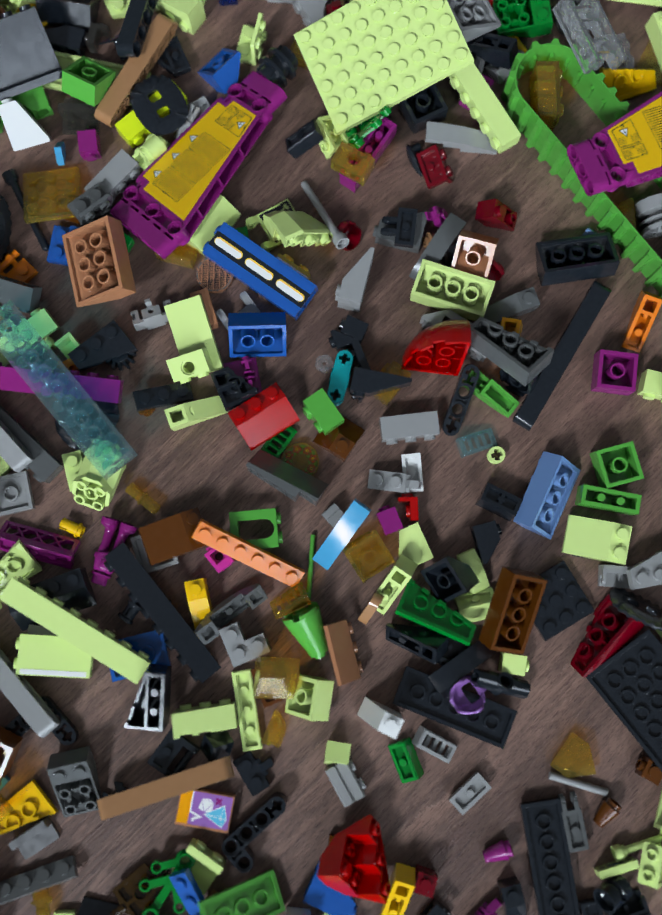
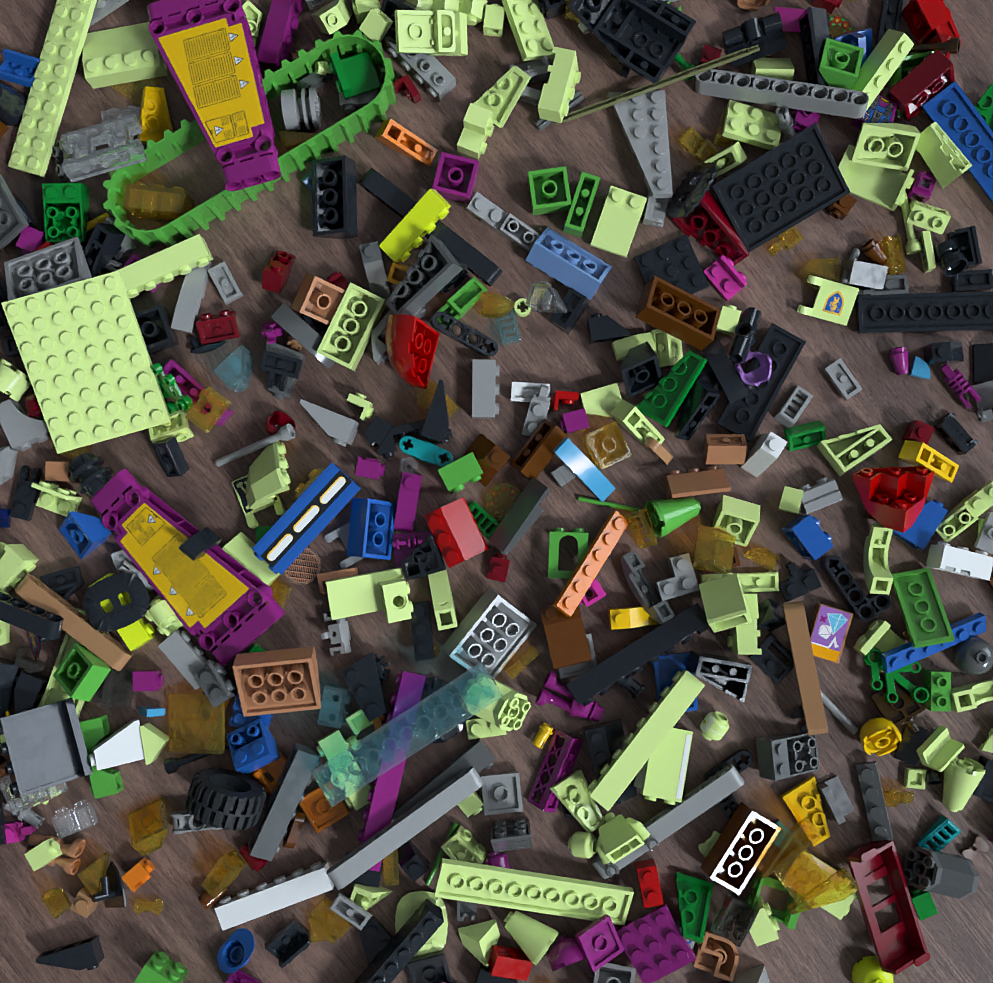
camera: 75 degrees left, 5 degrees up
(31, 157) = (152, 741): none -> yellowish green slope
(33, 248) = (252, 747): none -> blue slope
(81, 320) = (334, 705): none -> clear light blue brick
(98, 701) = (714, 726): none -> yellowish green head
(103, 876) = (879, 736): none -> yellow cylinder
(124, 829) = (838, 714): none -> light grey bar
(166, 462) = (489, 634): none -> light grey slope
(222, 170) = (200, 543): none -> black slope
(223, 694) = (724, 602): none -> yellowish green slope
(233, 463) = (498, 568): none -> dark red bracket
(248, 14) = (25, 495): none -> black hinge
(276, 36) = (56, 471): none -> nougat brick
(285, 851) = (875, 560): none -> yellowish green arch
(289, 367) = (408, 501): none -> magenta slope
(301, 775) = (808, 537): none -> blue brick
(316, 325) = (369, 468): none -> magenta window
(352, 484) = (538, 450): none -> reddish brown brick
(381, 677) = (725, 449): none -> nougat panel
(382, 308) = (359, 400): none -> yellowish green bracket
(395, 187) = (236, 369): none -> clear light blue slope
(397, 810) = (851, 449): none -> yellowish green wedge
(478, 168) = (225, 283): none -> light grey plate
(492, 875) = (919, 369): none -> dark azure tile
(494, 427) = (495, 305): none -> clear yellow brick
(507, 475) = (545, 298): none -> clear slope
(549, 772) = (832, 302): none -> yellowish green flag
(556, 656) = (725, 277): none -> dark pink bracket
(561, 337) = (415, 225): none -> neon yellow brick
(578, 423) = (502, 222): none -> light grey slope
(582, 804) = (866, 274): none -> panel
(605, 716) = (786, 240): none -> clear yellow plate
(611, 832) = (895, 256): none -> clear yellow hinge

